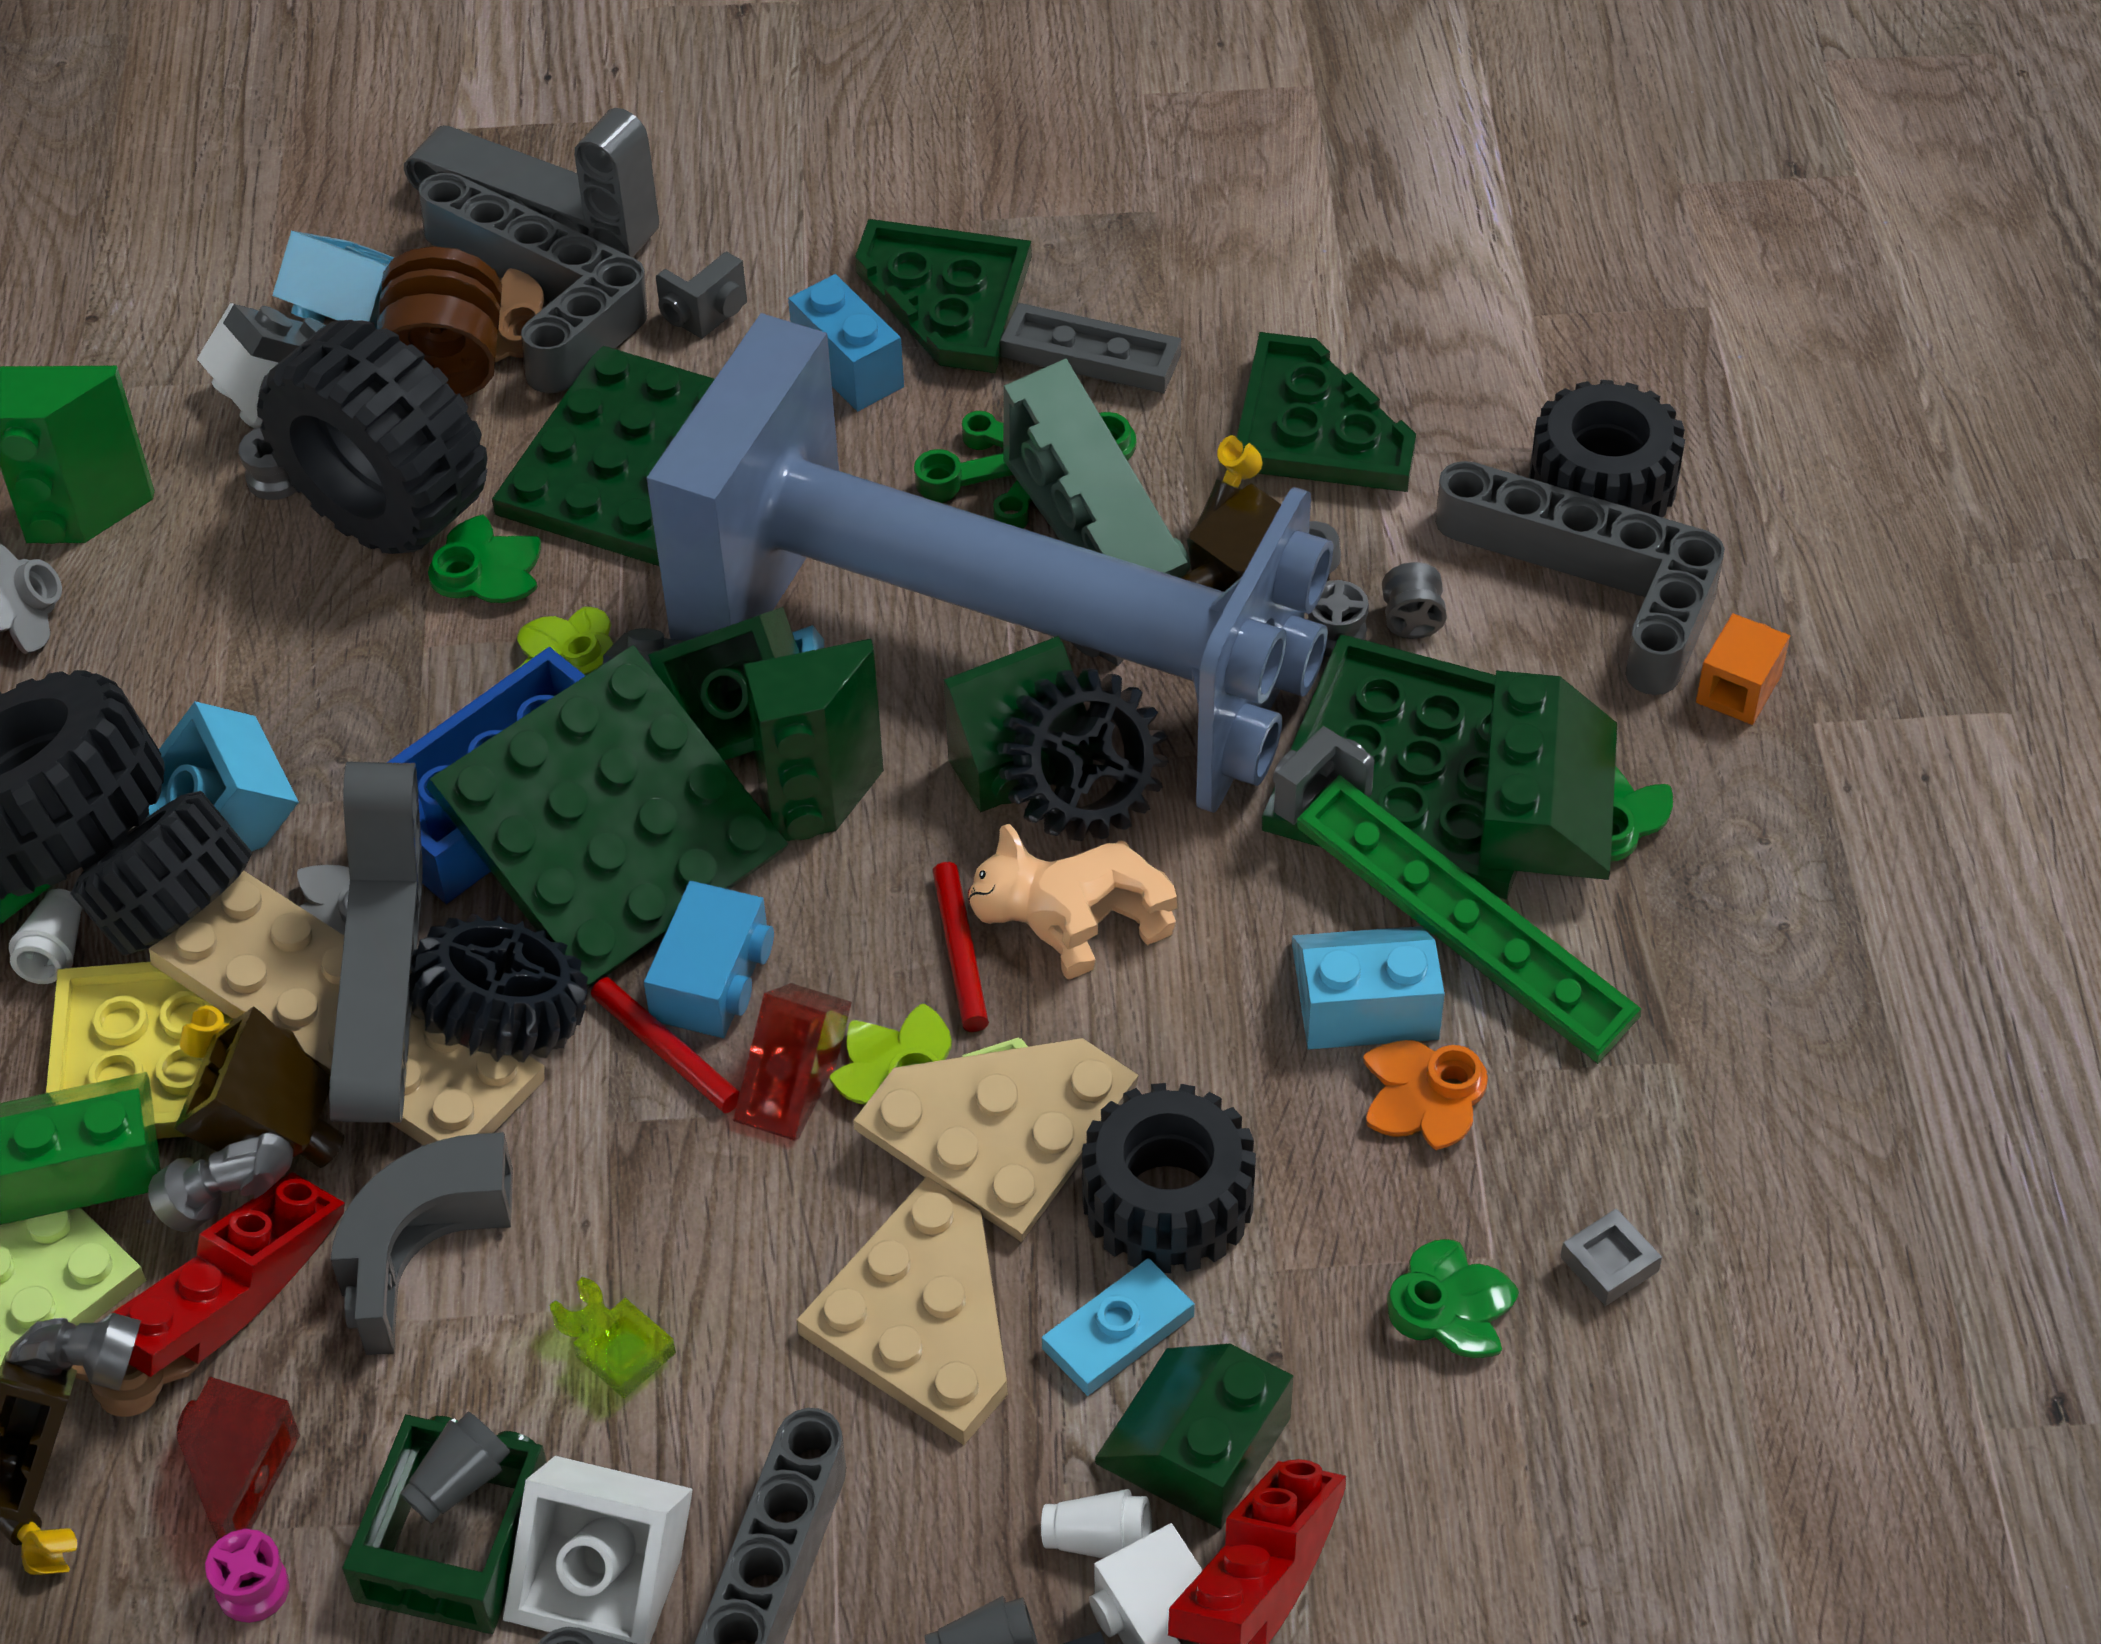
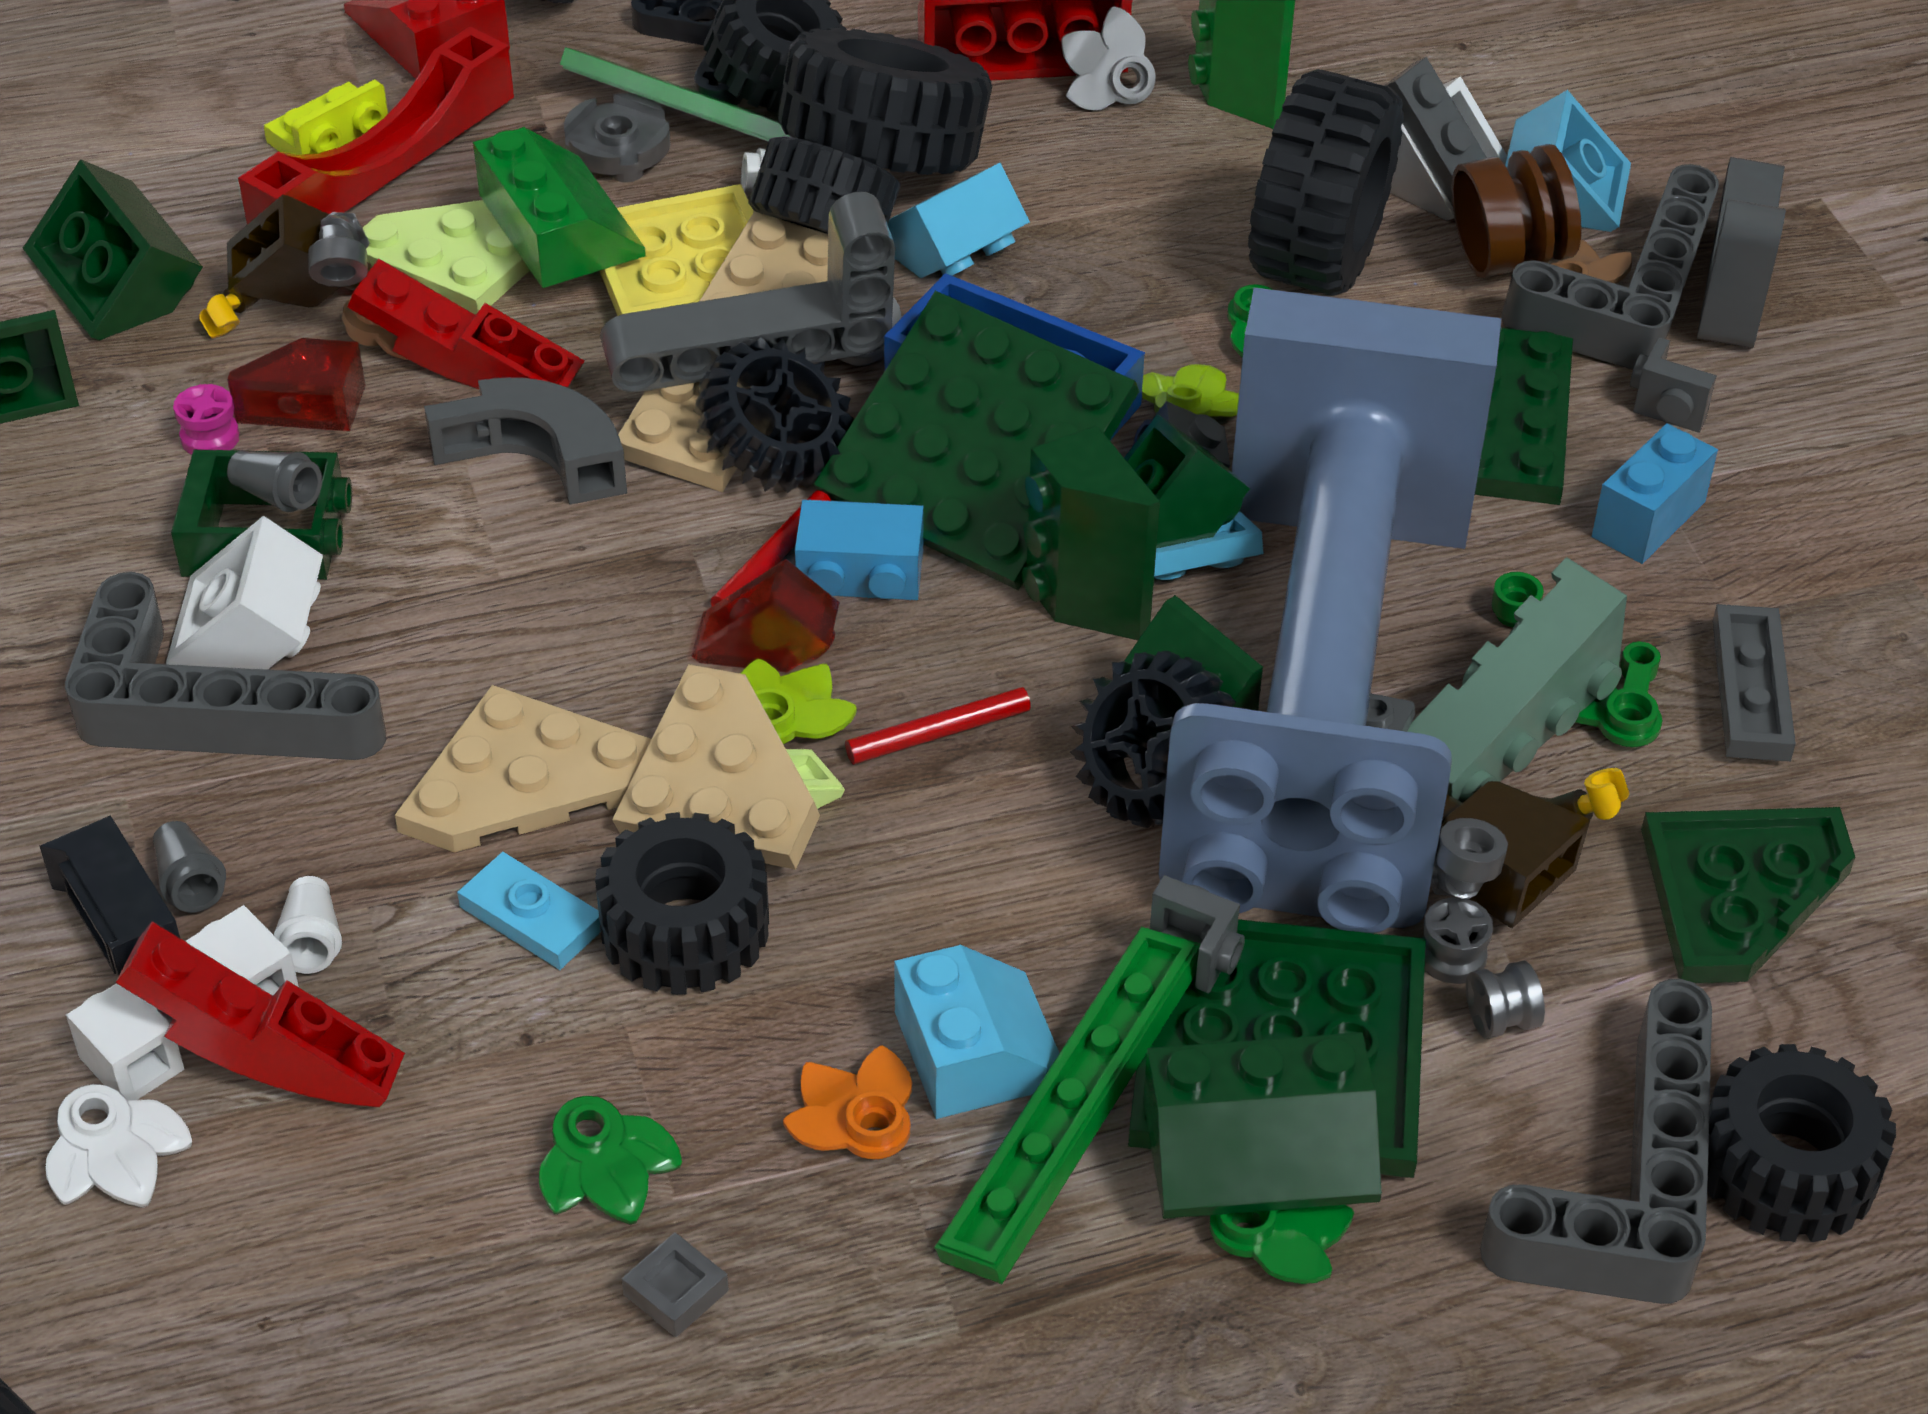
camera: 75 degrees right, 5 degrees down
(250, 1103) = (598, 289): dark brown torso -> none
(614, 1343) = (453, 581): clear neon green plate -> none
(946, 287) = (1785, 554): dark green plate -> none
(1072, 895) = (1004, 783): light nougat animal -> none
(1200, 1428) = (415, 984): dark green slope -> none
(1742, 668) = (1531, 1321): orange brick -> none

